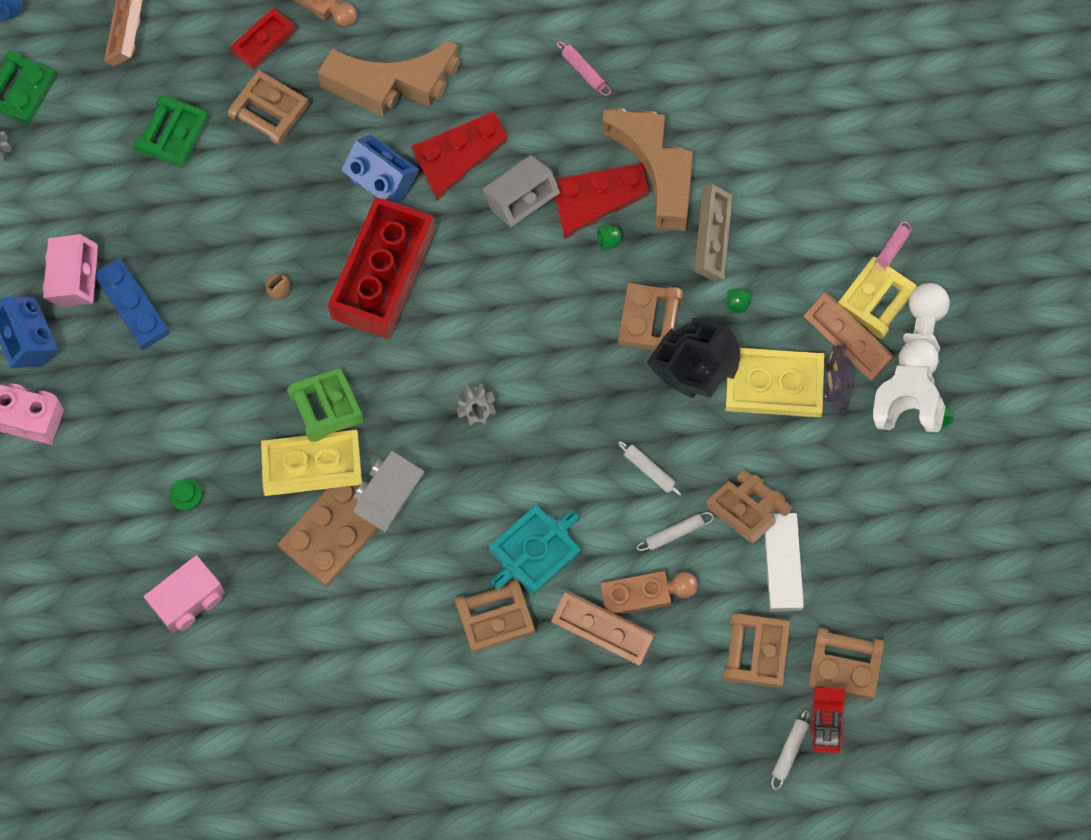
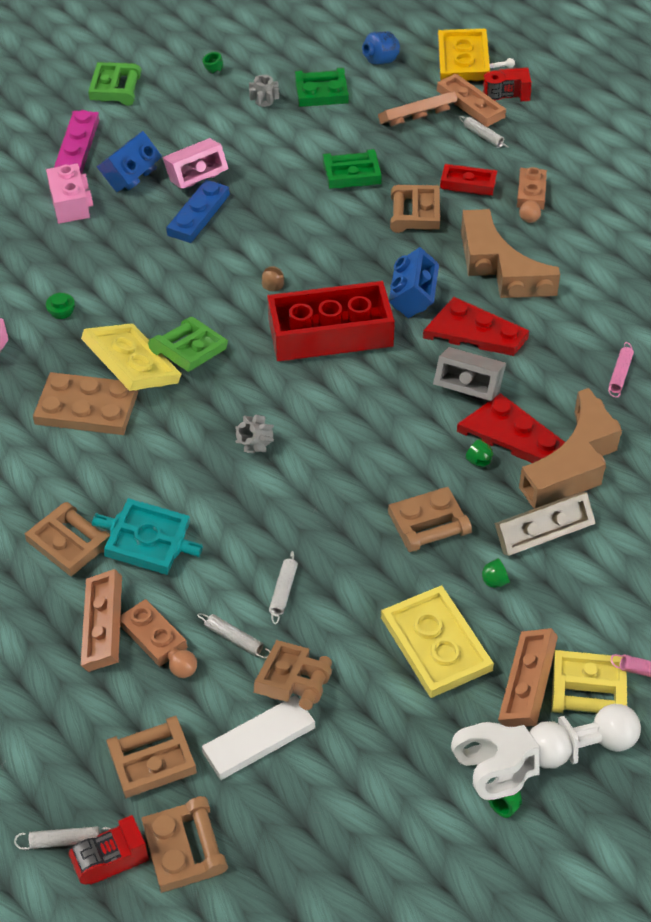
camera: 60 degrees right, 20 degrees down
(387, 491) = (134, 409): light grey brick -> none
(696, 357) = (409, 560): black brick -> none
(840, 380) = (471, 680): clear purple plate -> none

